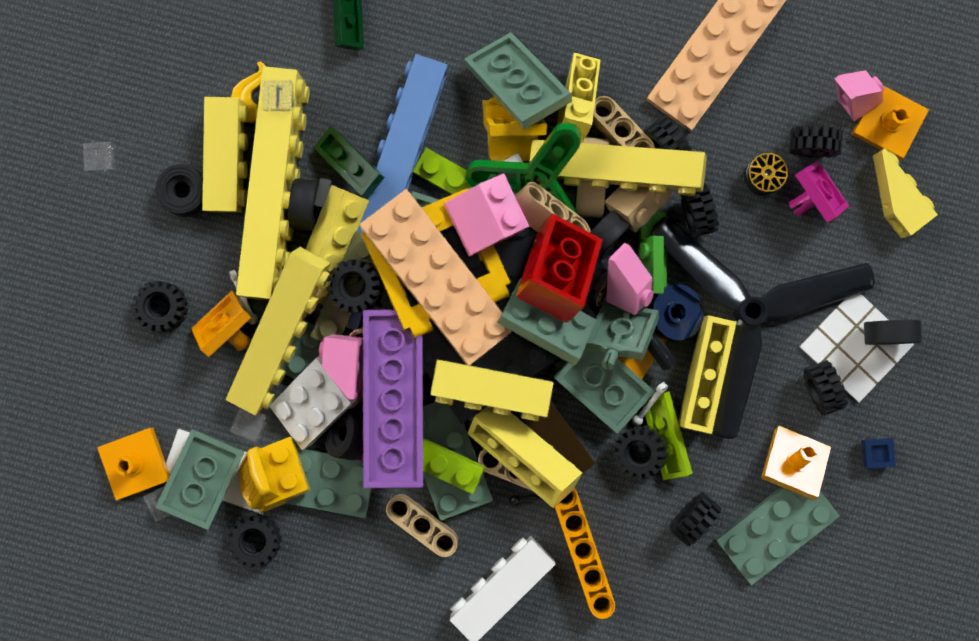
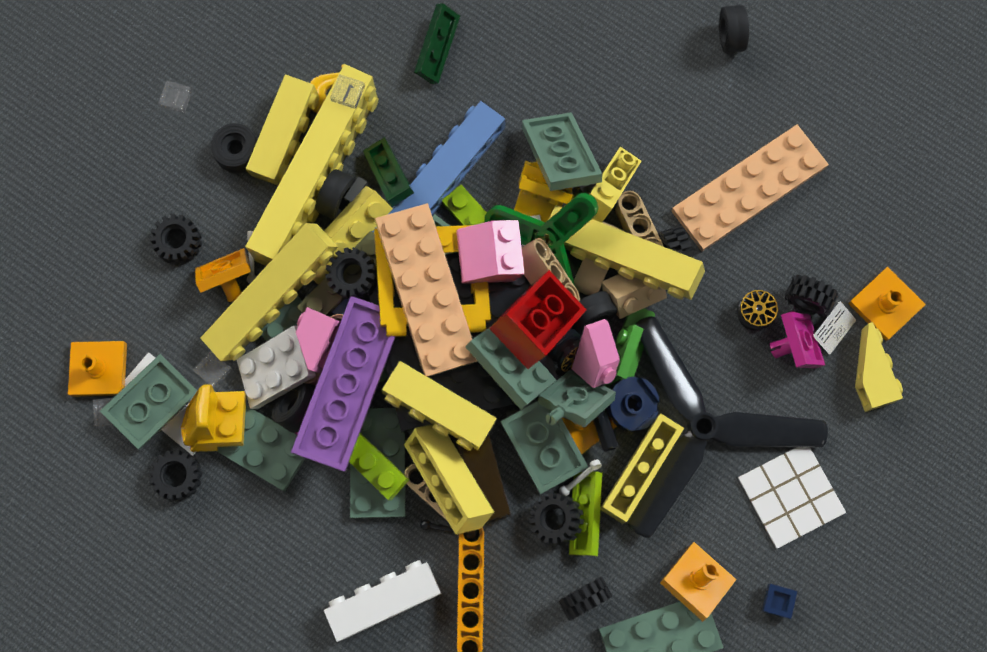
camera: 20 degrees right, 10 degrees down
(428, 538) = (322, 505): tan beam -> none
(700, 212) = (685, 320): black tyre -> none
(825, 387) = (747, 519): black tyre -> none
(847, 165) = (834, 327): none -> clear sticker
(858, 93) = (864, 266): bright pink slope -> none
(892, 332) = (827, 489): black tyre -> none

